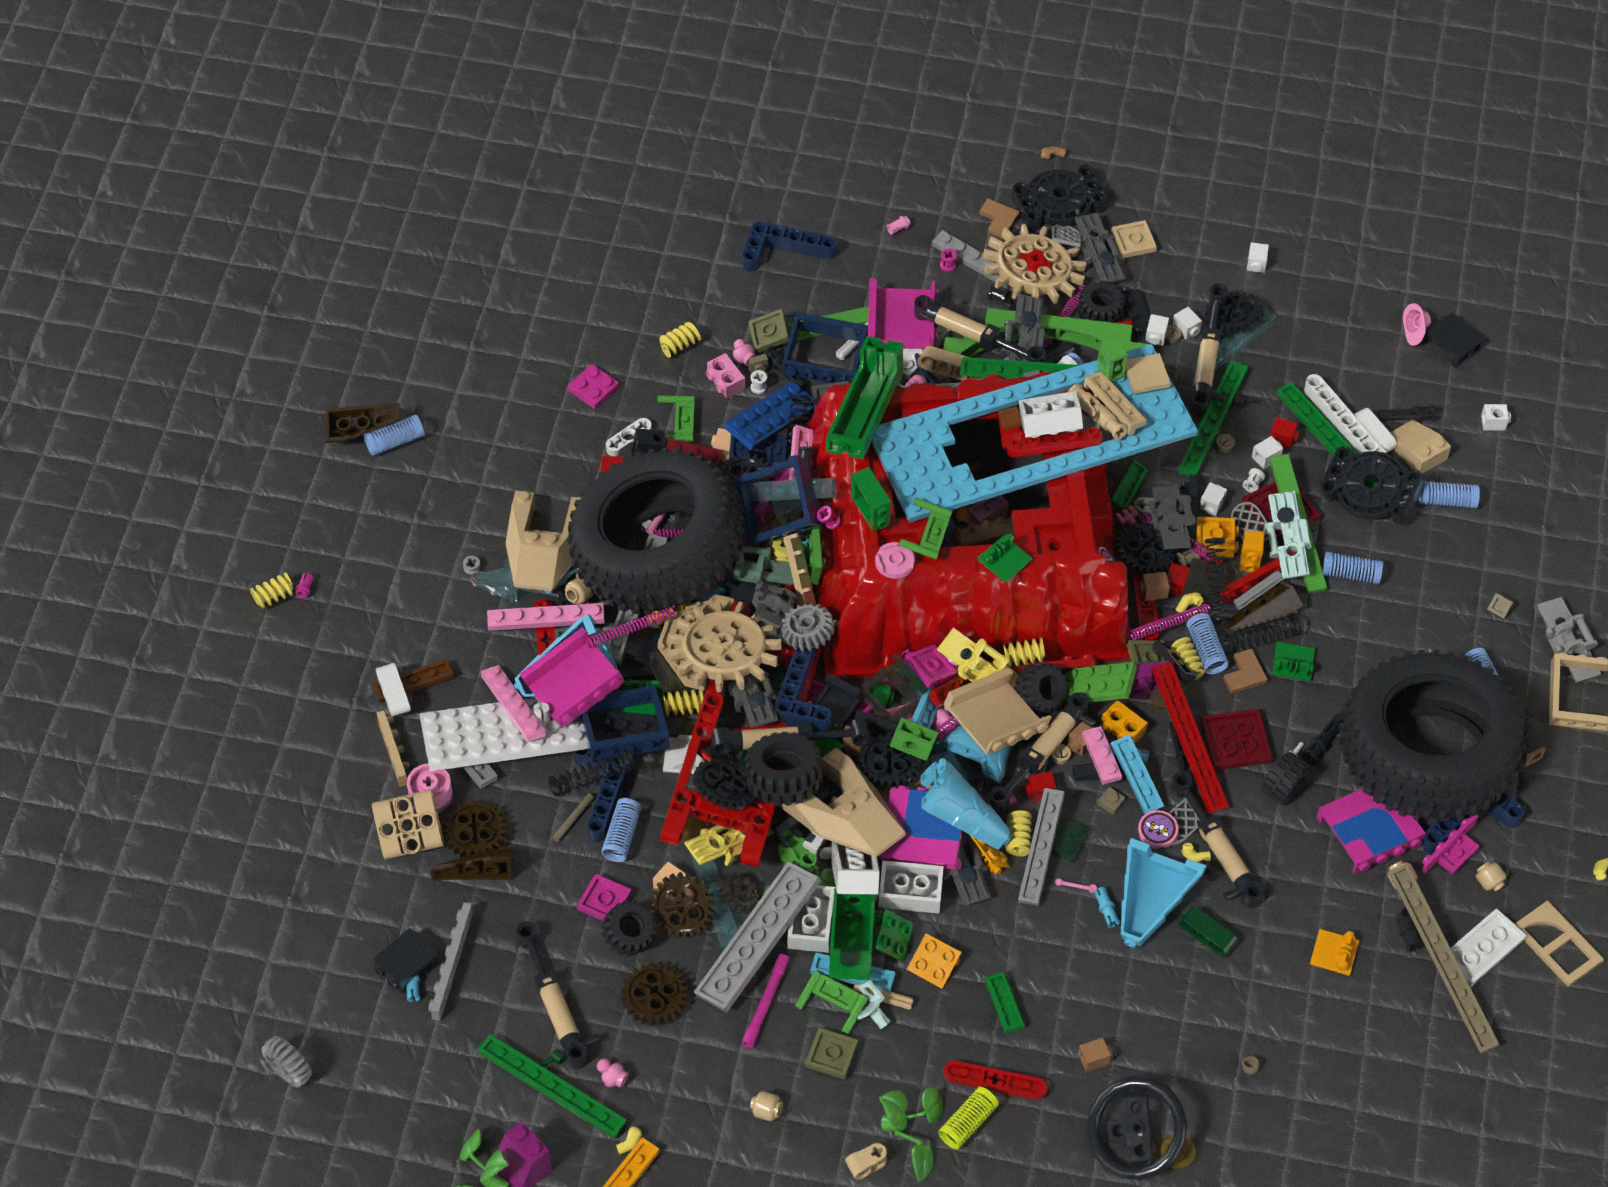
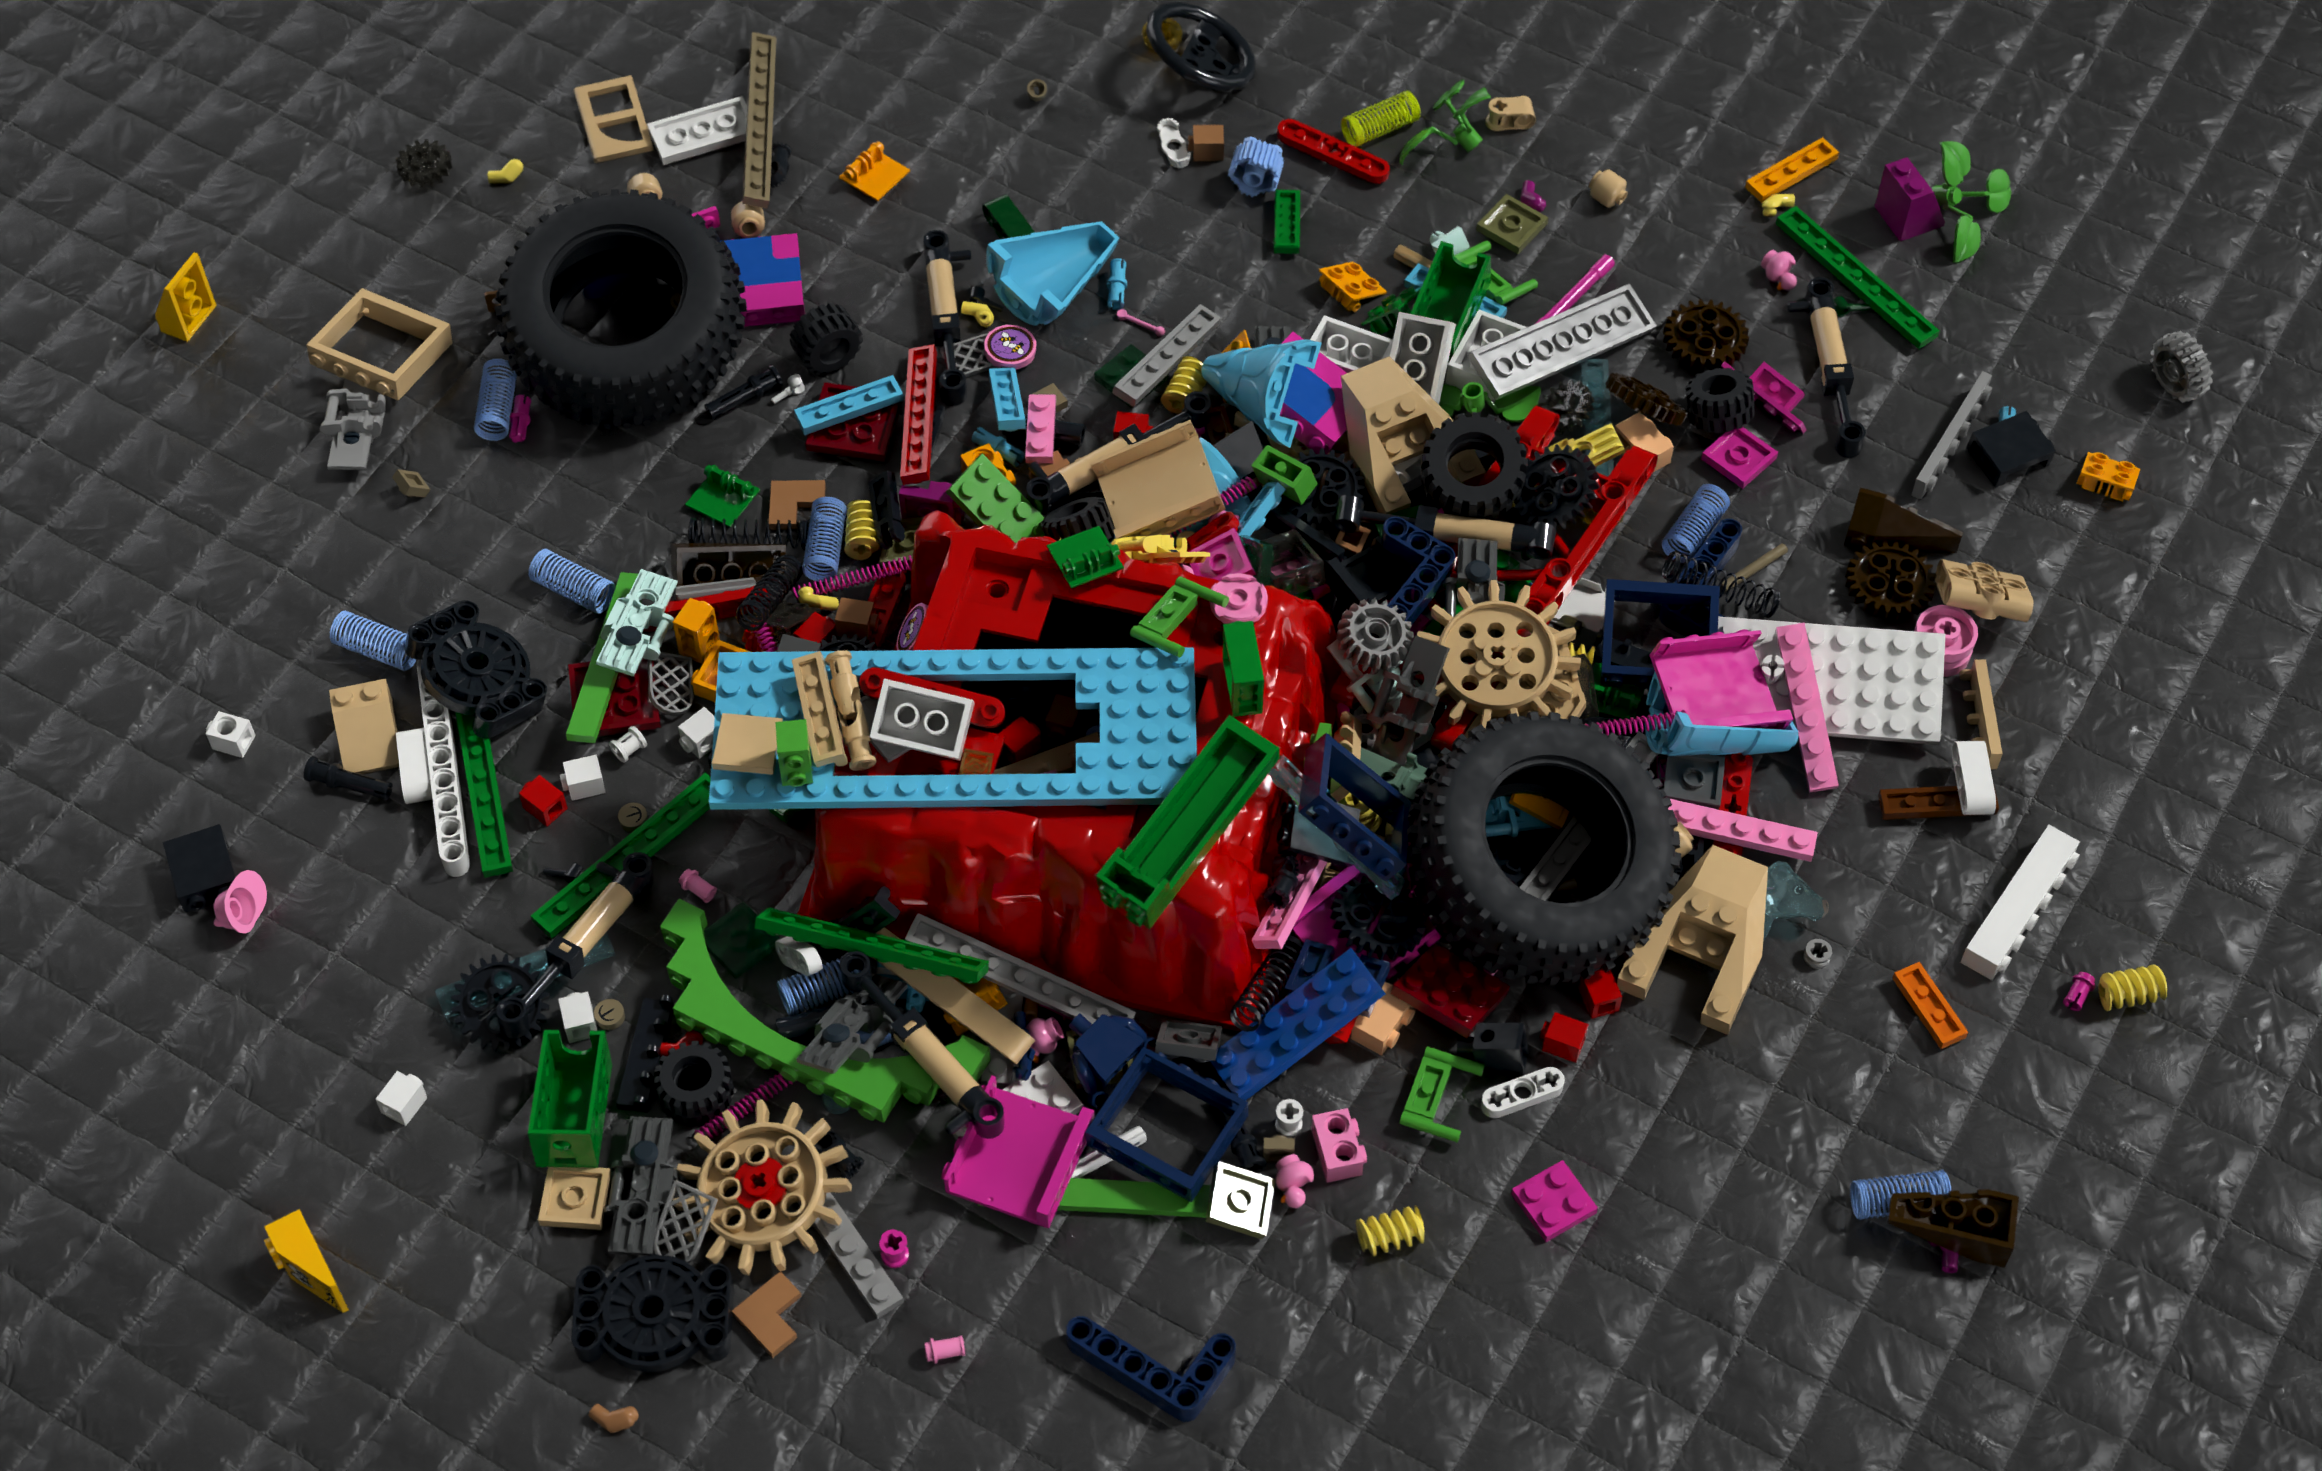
camera: 160 degrees left, 0 degrees up
(330, 965) = (2101, 468): none -> light orange hinge
(349, 628) = (2020, 902): none -> white brick
(396, 550) = (1930, 1005): none -> orange plate
(595, 956) = (1777, 394): none -> dark pink bracket
(828, 1086) = (1531, 198): none -> magenta arm
(829, 516) = (1296, 746): dark pink bush -> none
(1045, 1030) = (1256, 166): none -> light blue brick
(1130, 1063) = (1169, 133): none -> white piece
(1157, 329) = (634, 1006): white brick -> none
(1159, 267) = (570, 1102): none -> green piece
(1242, 737) = (848, 405): none -> medium azure plate
(1250, 163) = (296, 1251): none -> yellow slope

